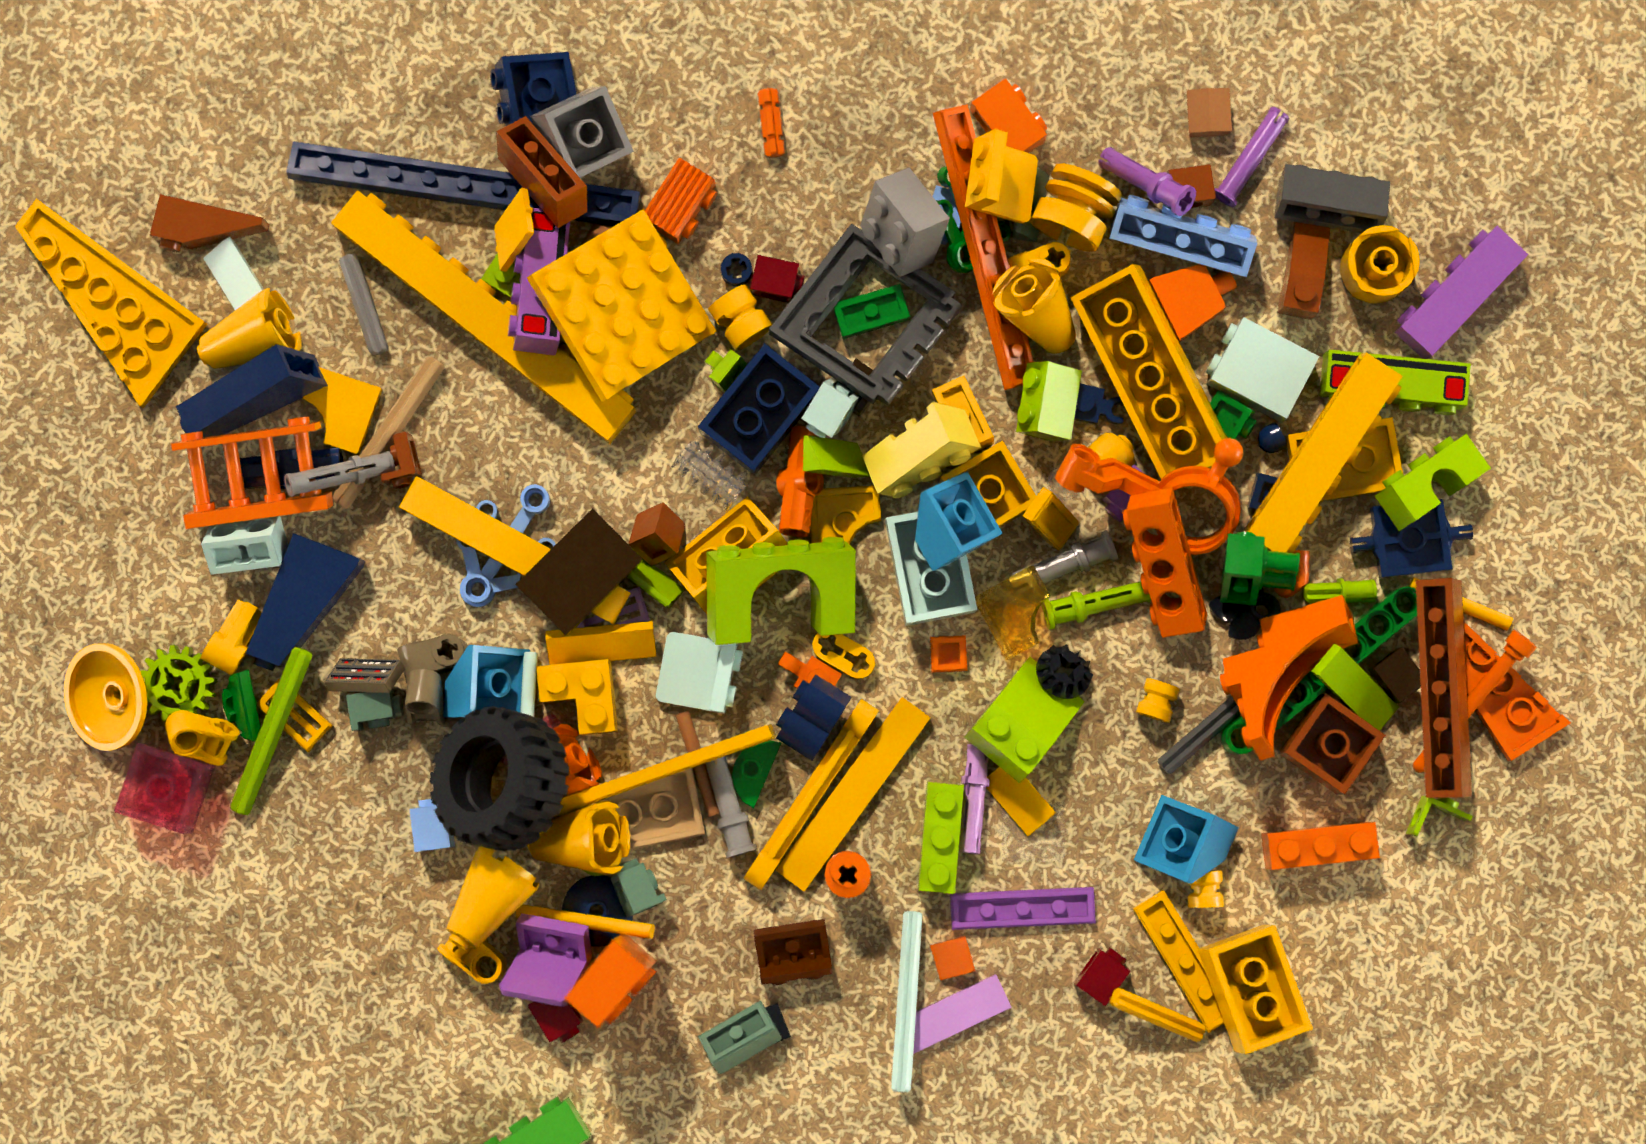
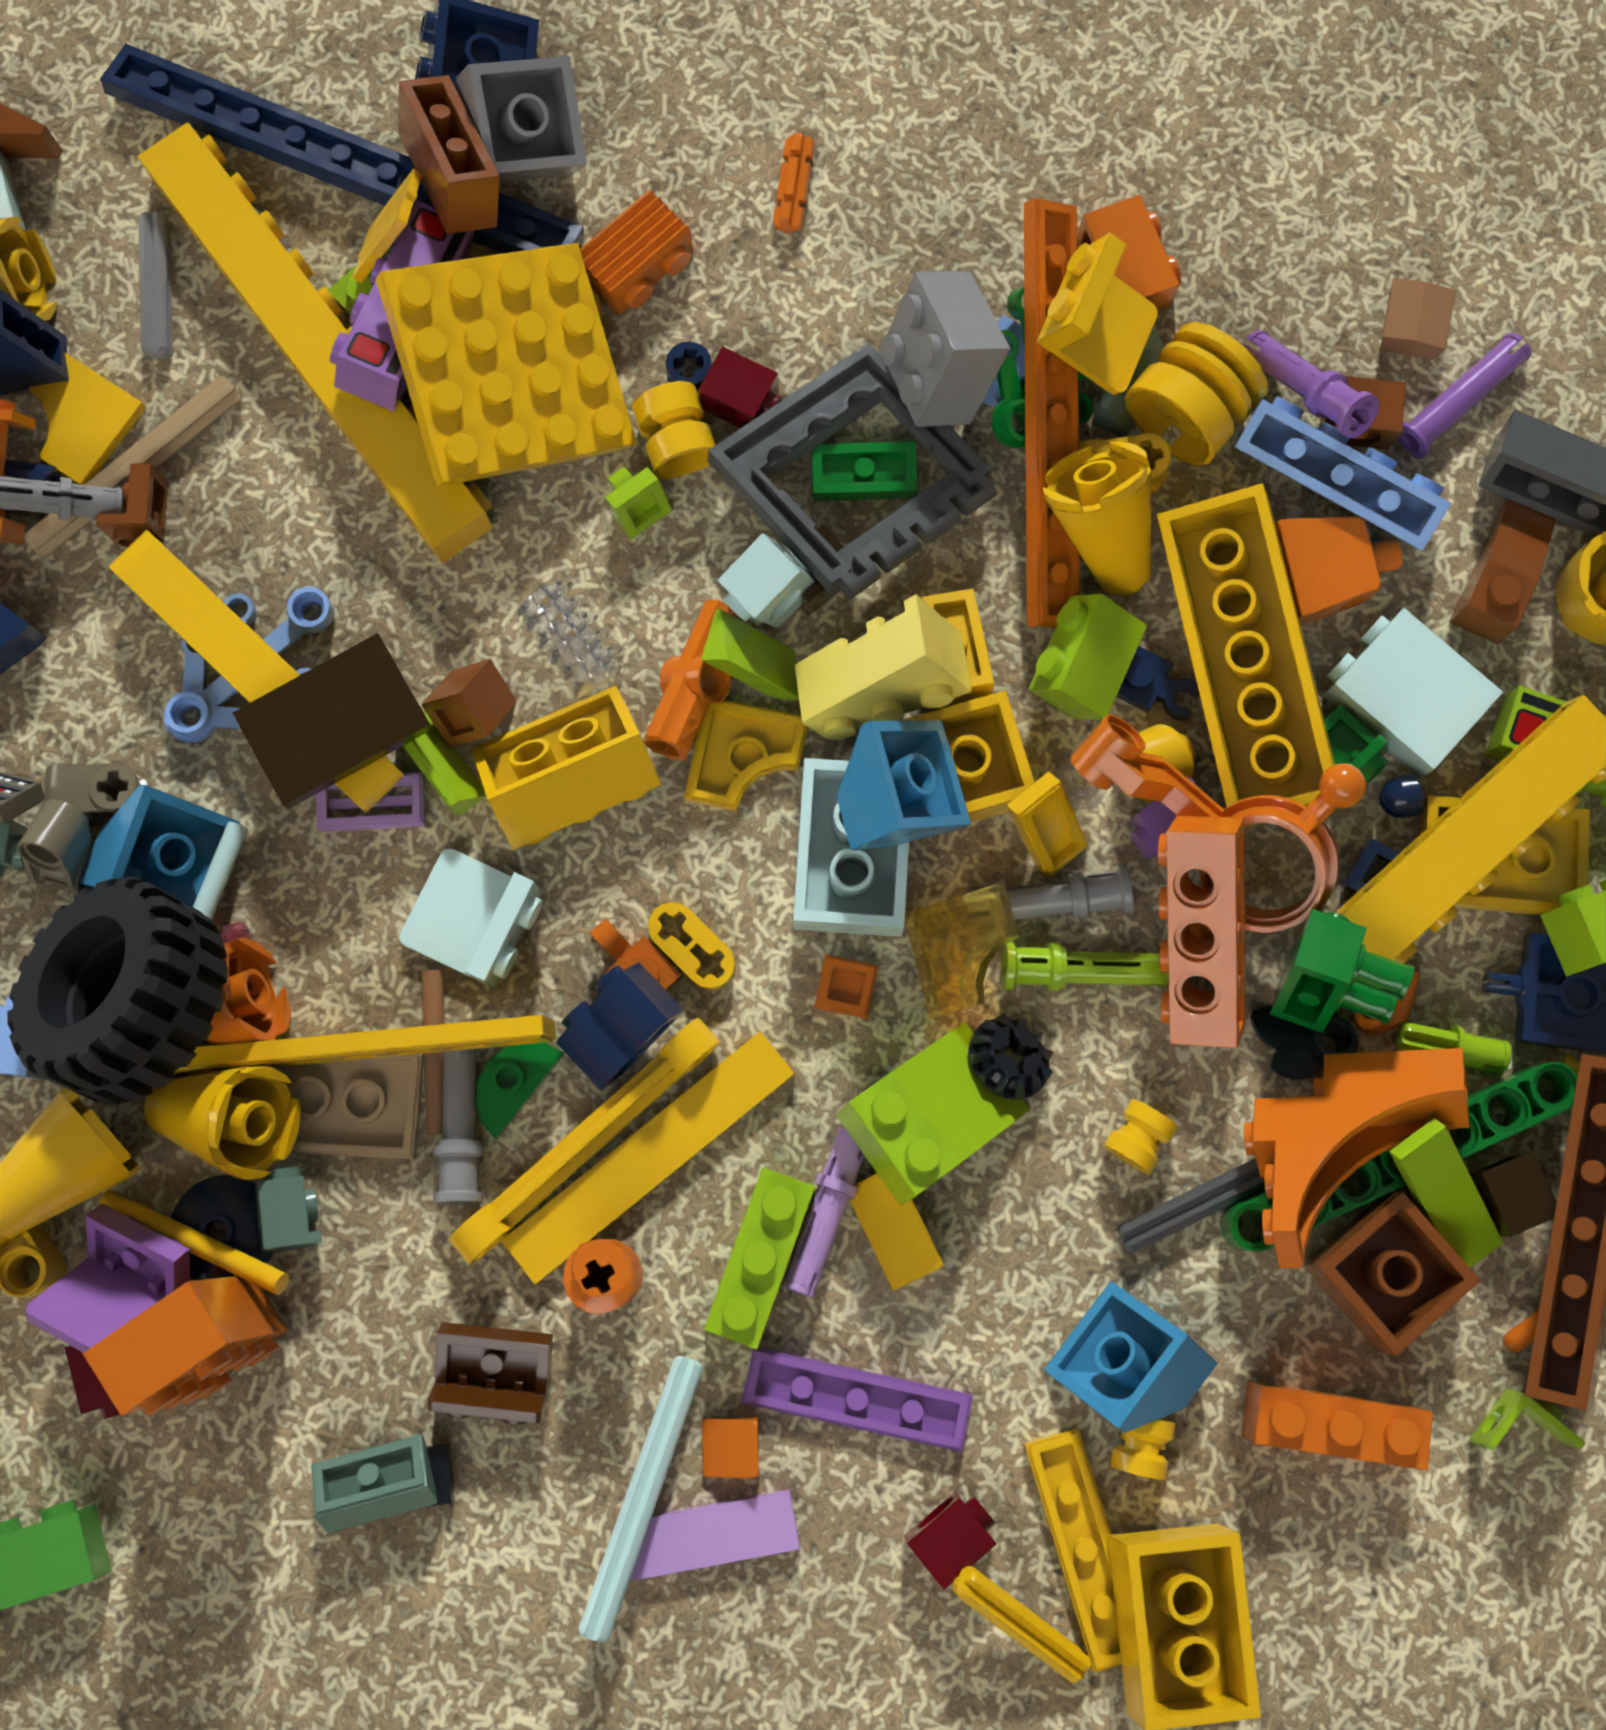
camera: 15 degrees right, 5 degrees down
(589, 685) = (305, 898): yellow brick -> none
(602, 643) = (342, 838): yellow tile -> none
(737, 572) = (559, 777): lime arch -> none
(759, 409) = (660, 561): dark blue brick -> none

